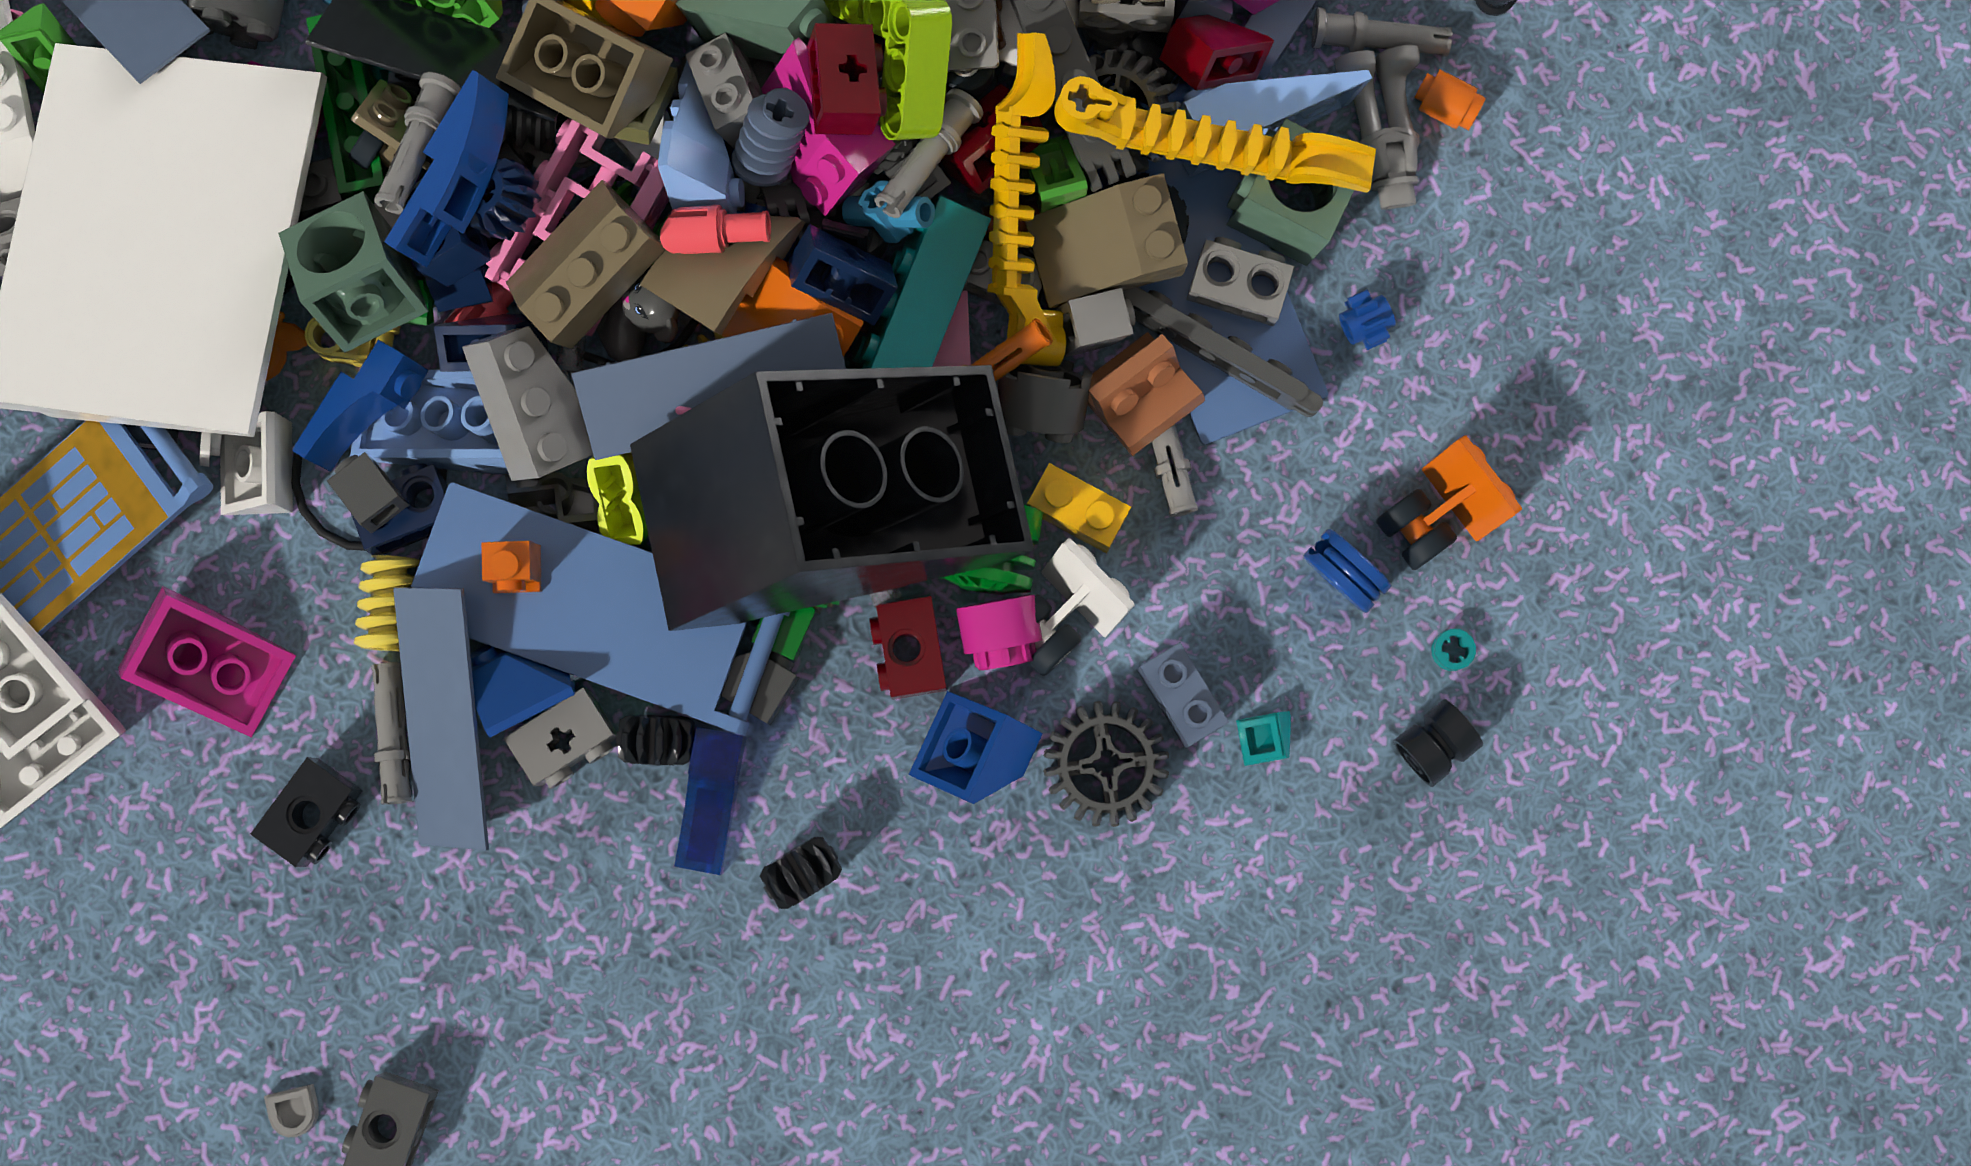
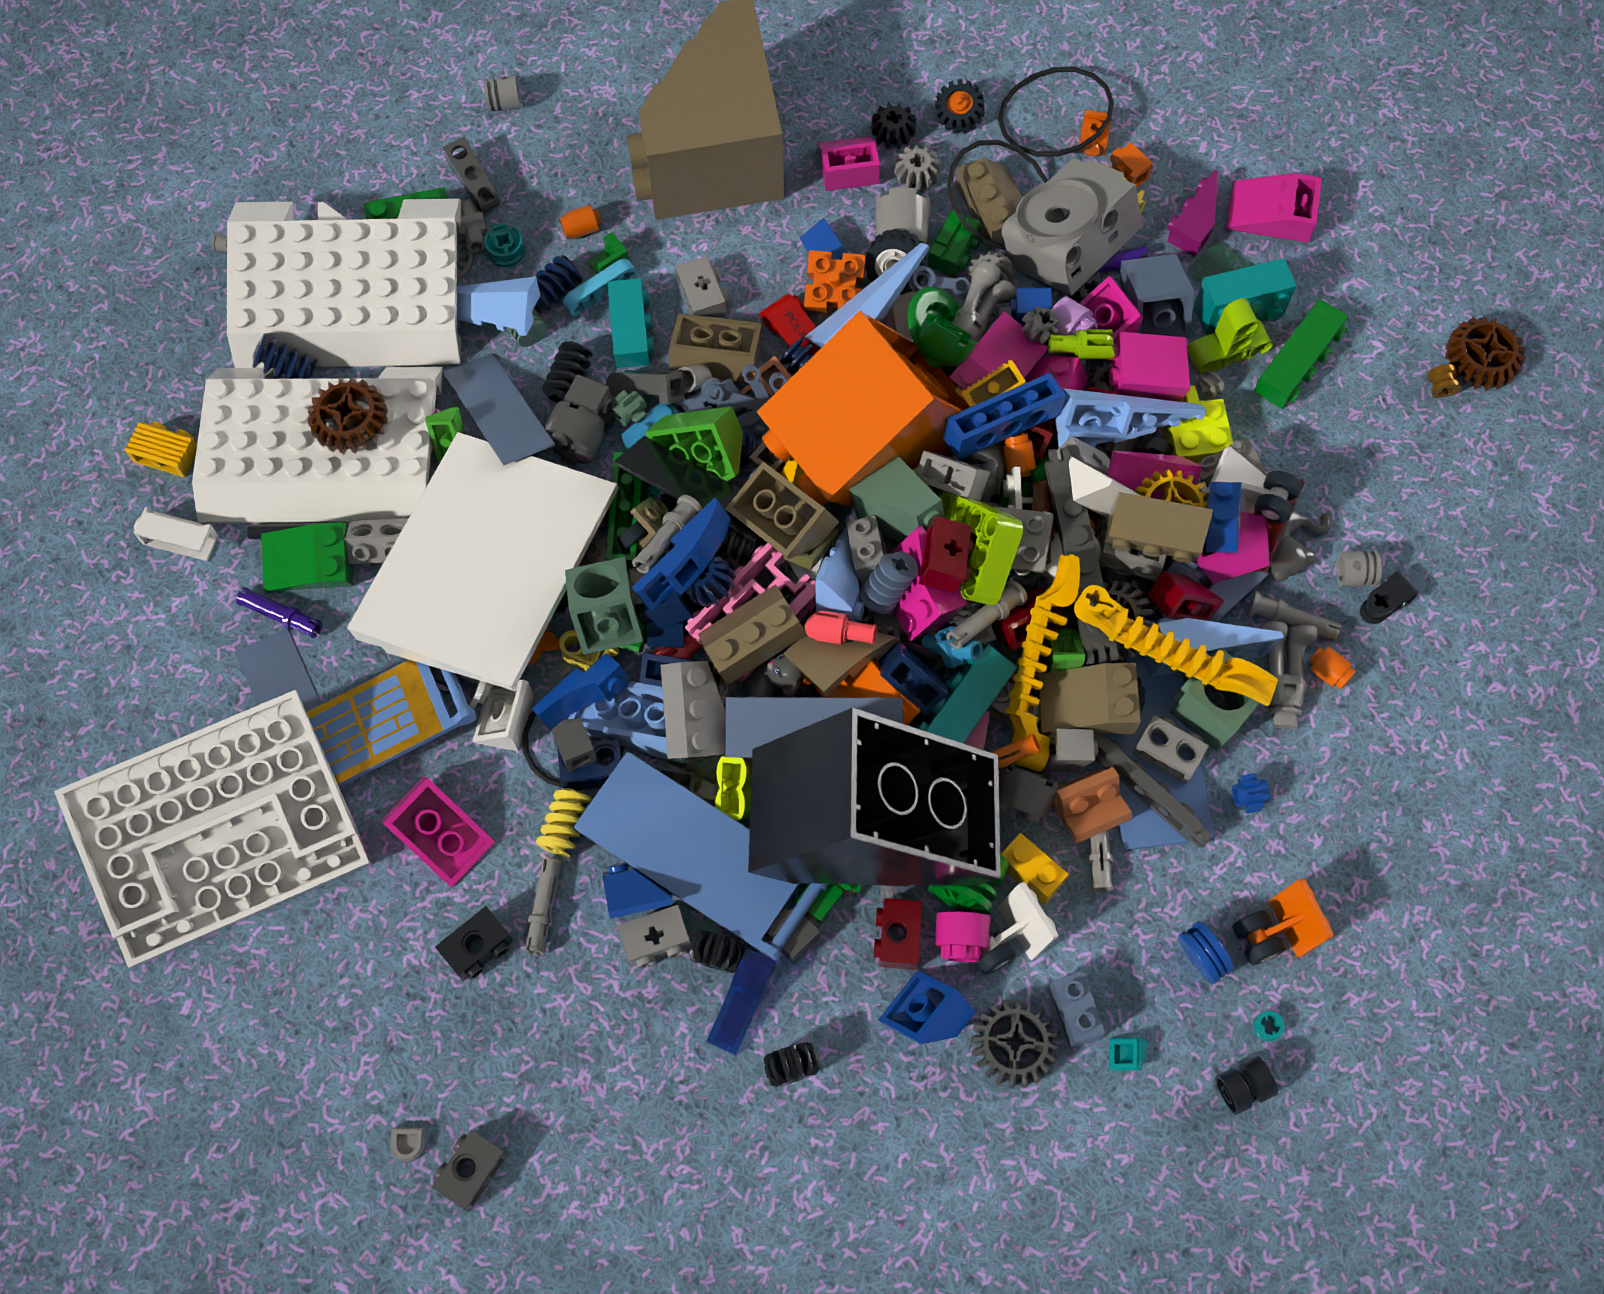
camera: 15 degrees right, 15 degrees down
(441, 717) = (580, 902): sand blue window -> none
(512, 566) = (654, 812): orange brick -> none

